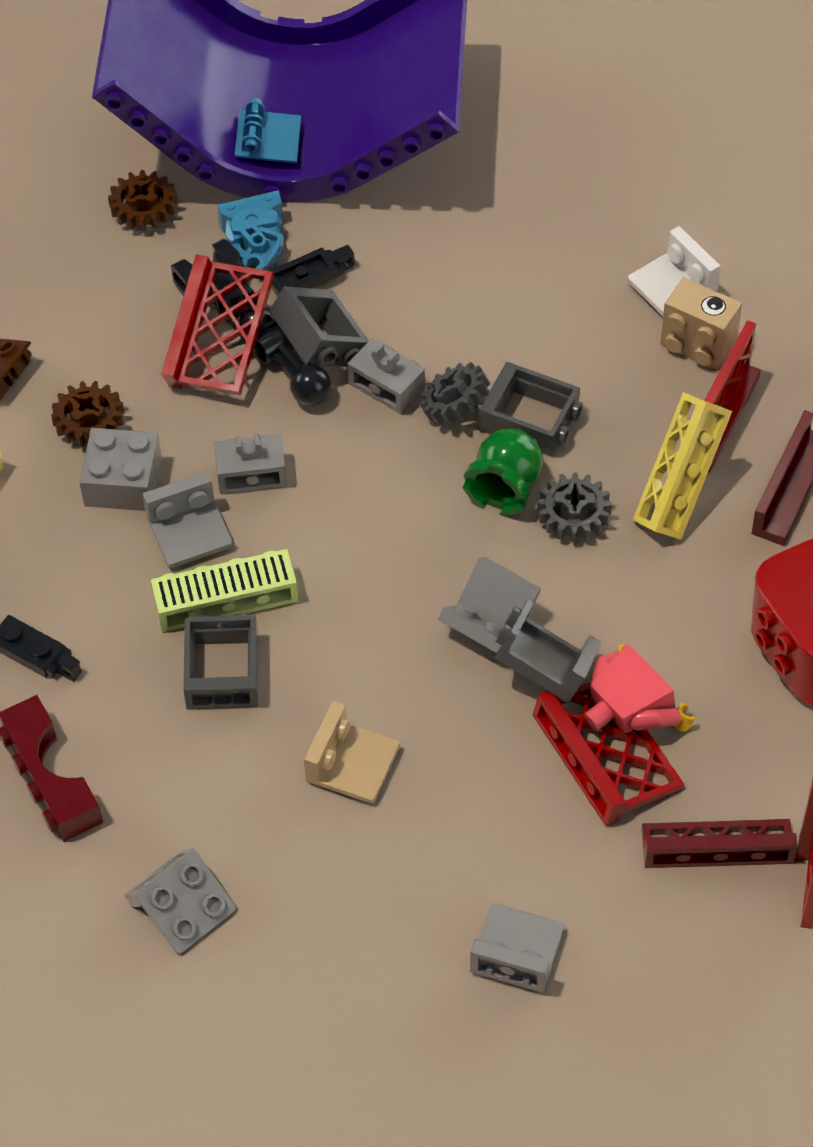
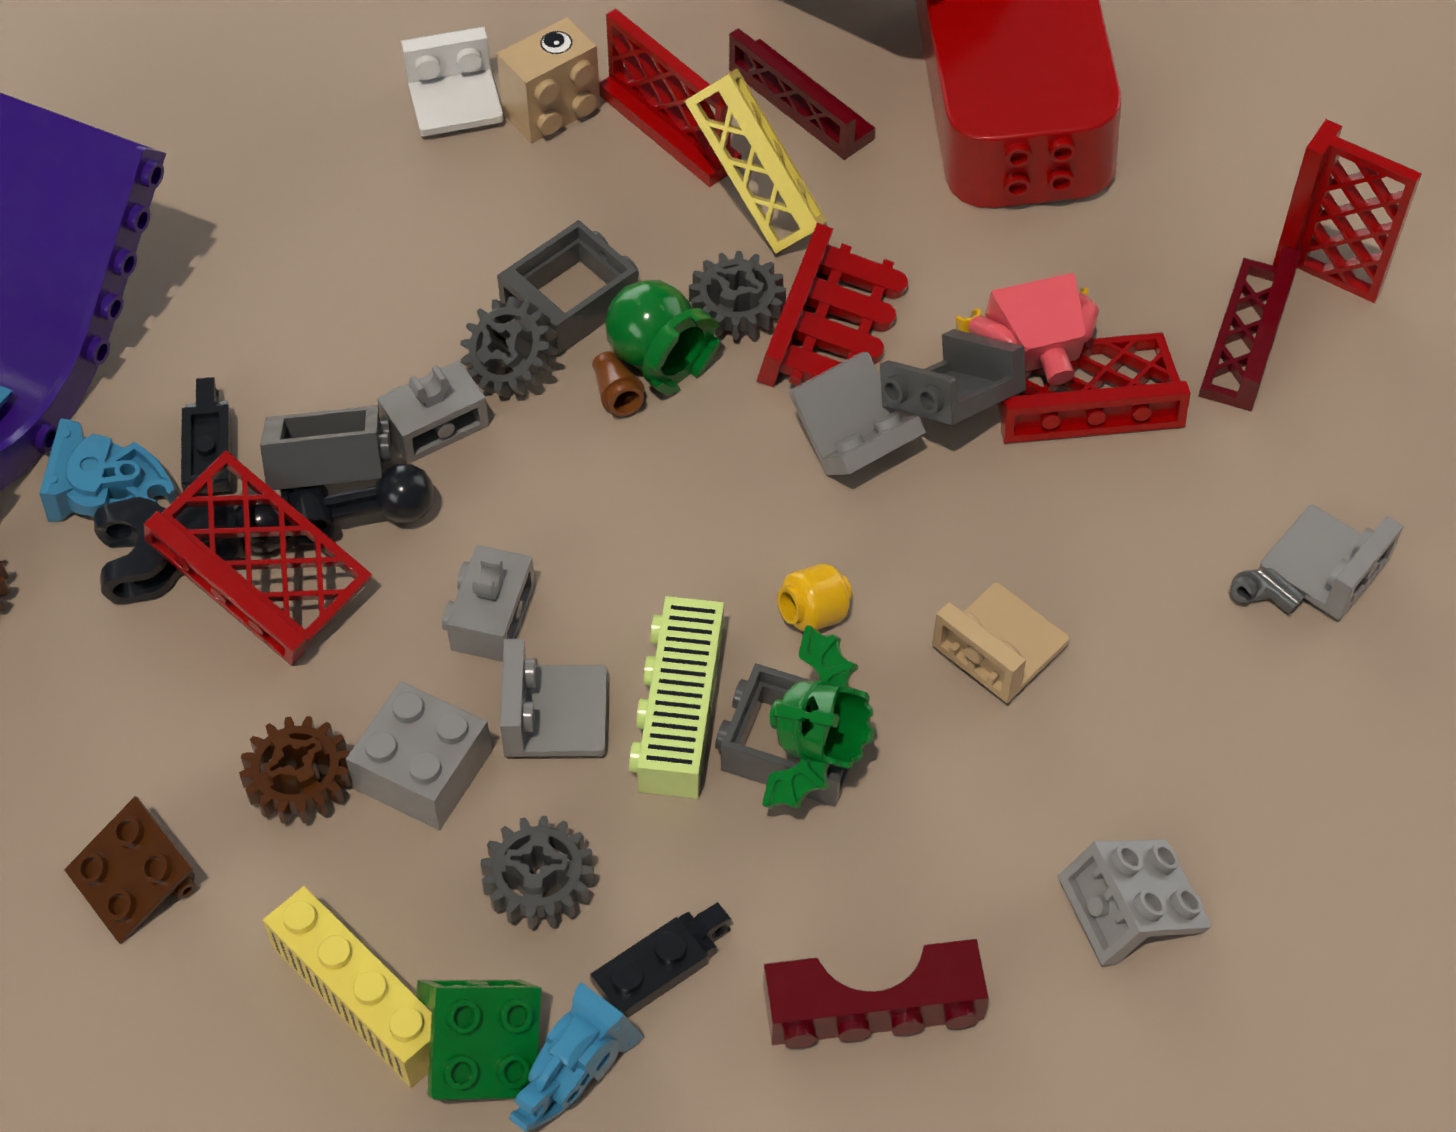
camera: 70 degrees left, 0 degrees up
(50, 569) = (532, 850): none -> dark grey gear
(207, 655) = (818, 722): none -> green helmet
(334, 637) = (814, 597): none -> yellow head
(454, 467) = (618, 387): none -> dark orange cone
(475, 911) = (1265, 584): none -> dark grey arm
(588, 549) = (832, 299): none -> red fence

